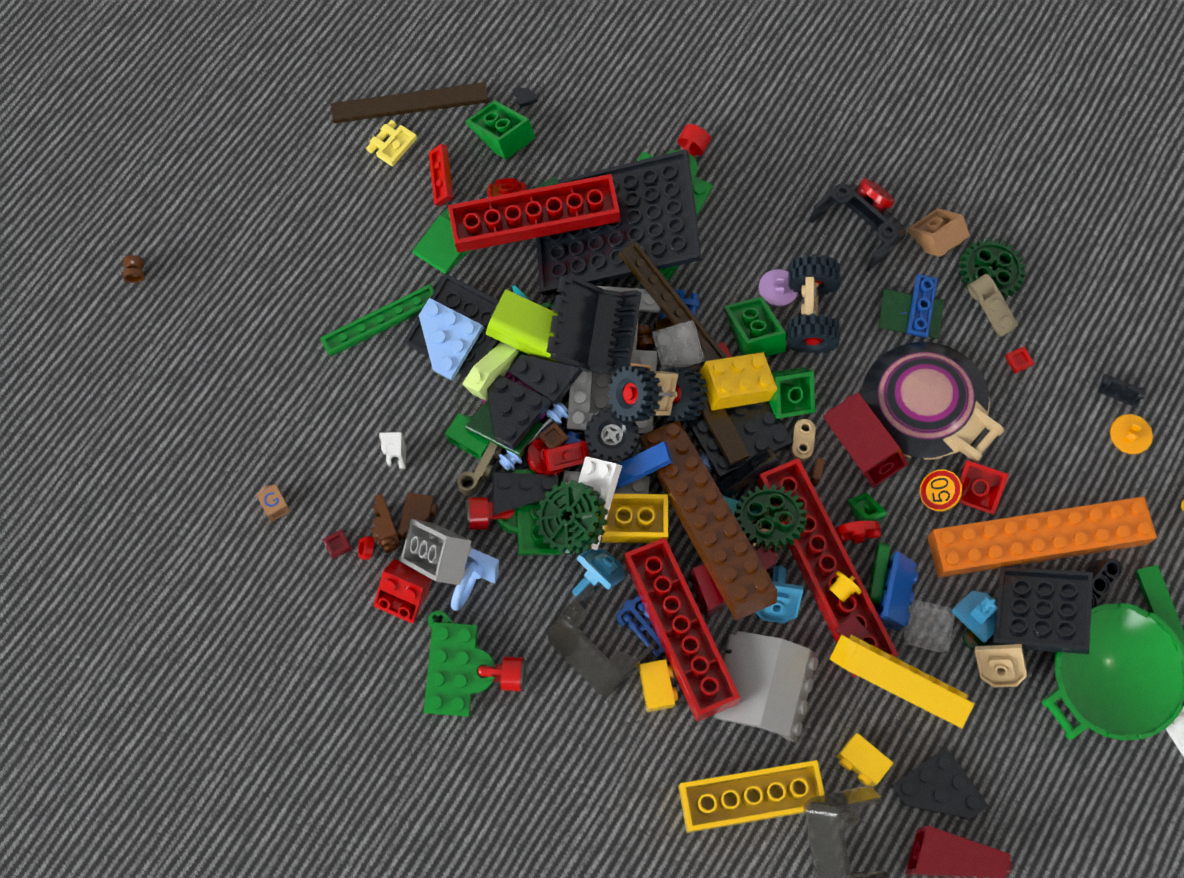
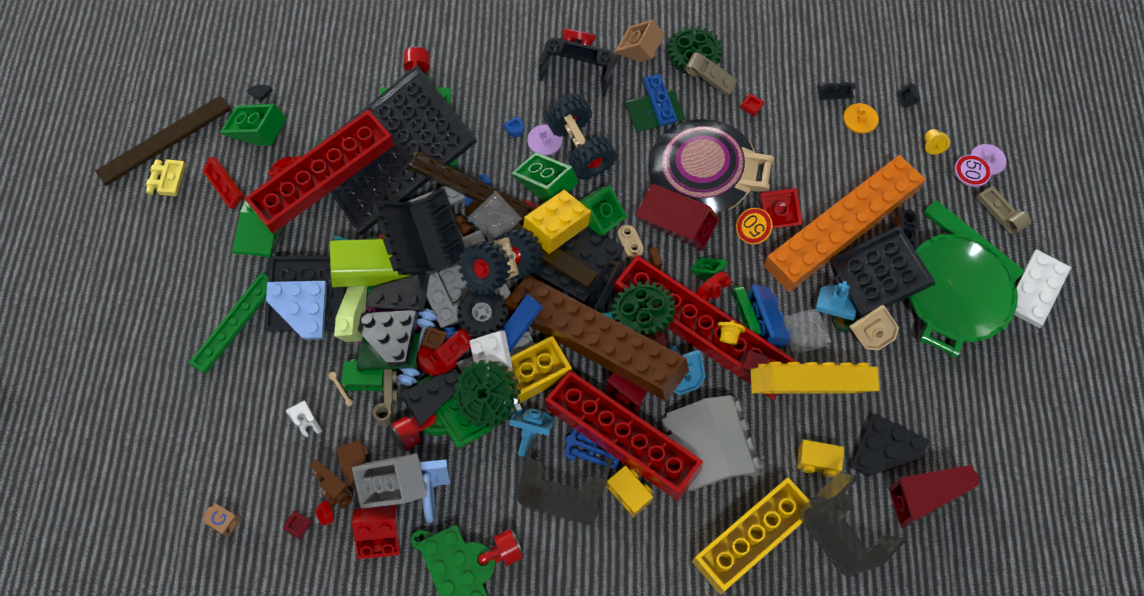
camera: 30 degrees left, 5 degrees down
(443, 421) = (333, 376): none -> tan hinge
(755, 259) = (514, 127): none -> blue tile

